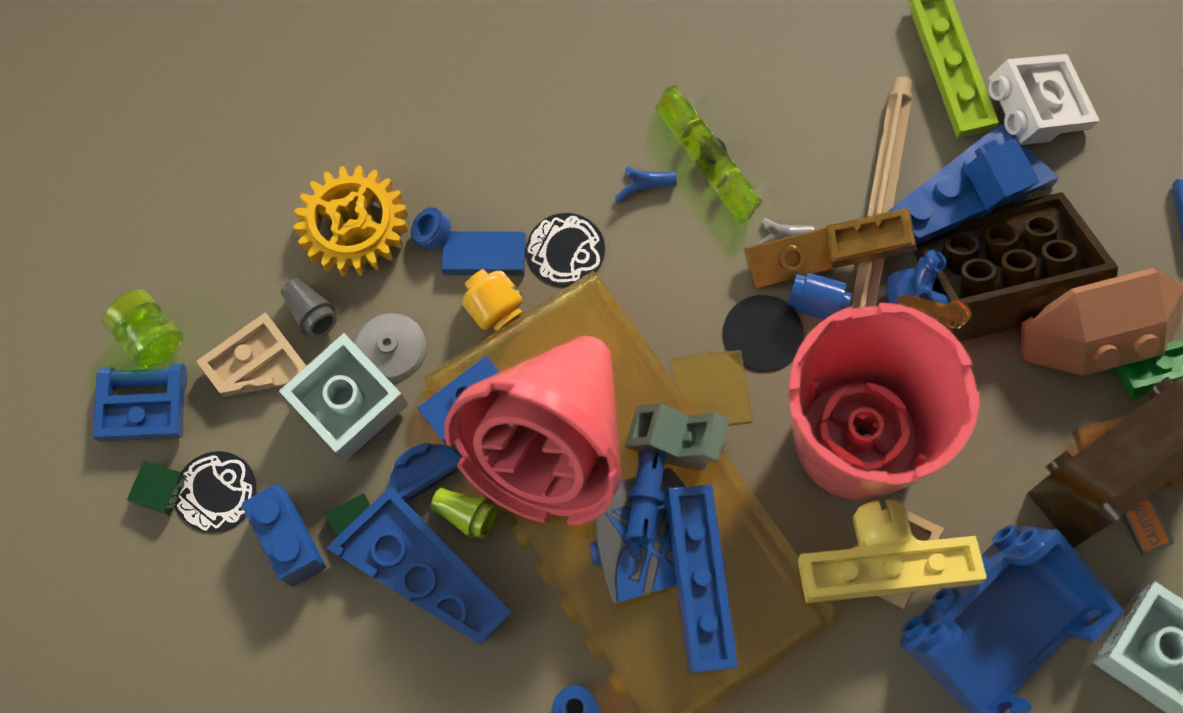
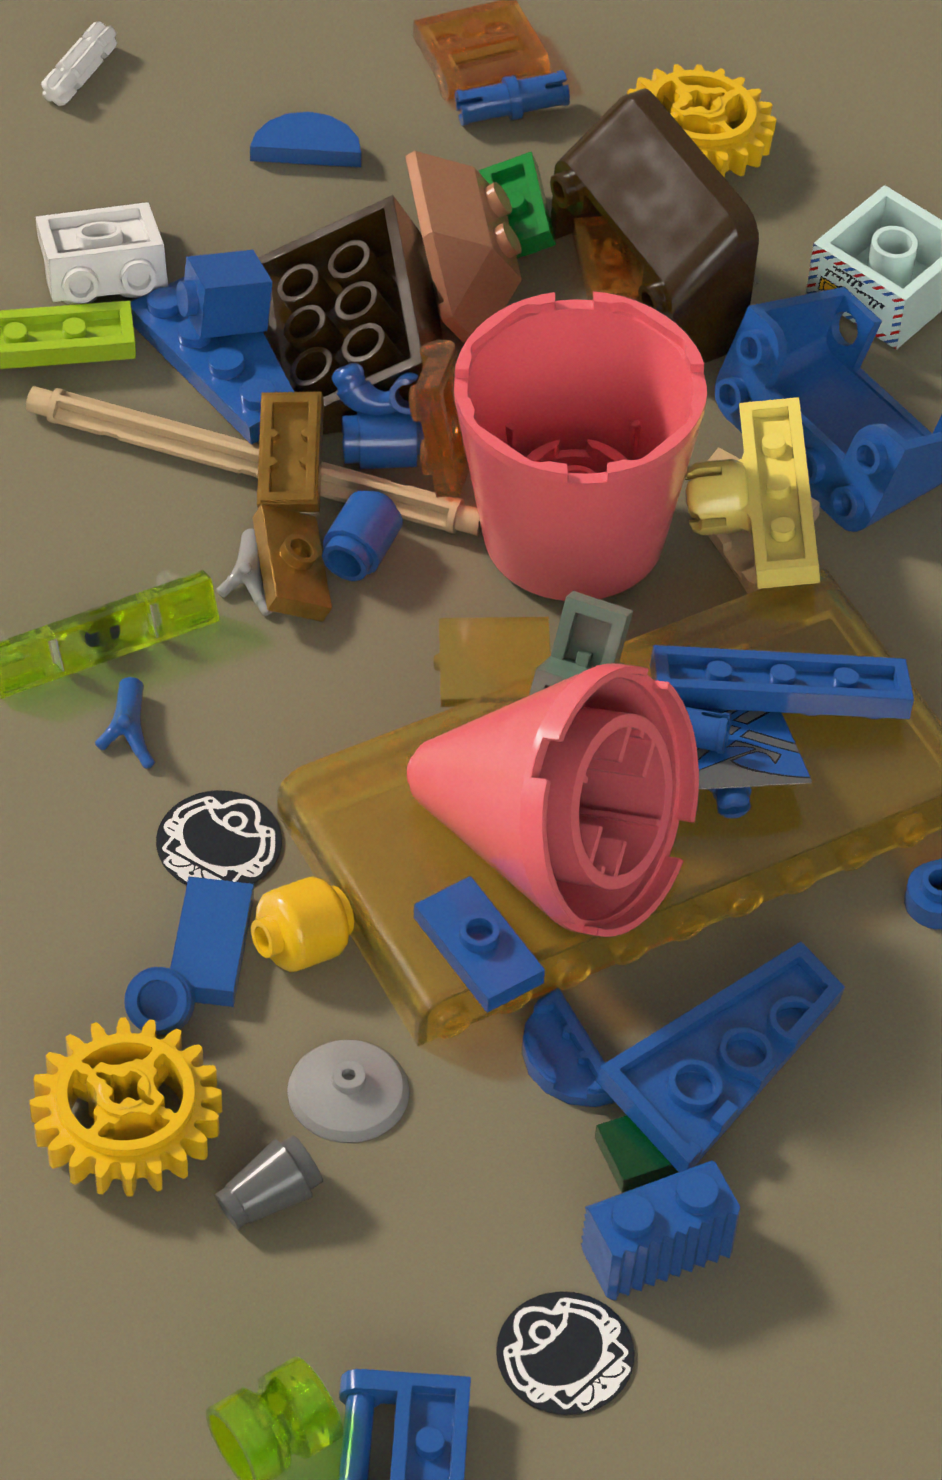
camera: 90 degrees left, 20 degrees down
(156, 488) = (556, 1428): dark green tile -> none
(252, 360) = (349, 1268): tan wing -> none
(344, 397) = (445, 1122): light aqua brick -> none
(466, 512) = (642, 990): lime cone -> none
(764, 332) = (394, 618): black sticker -> none

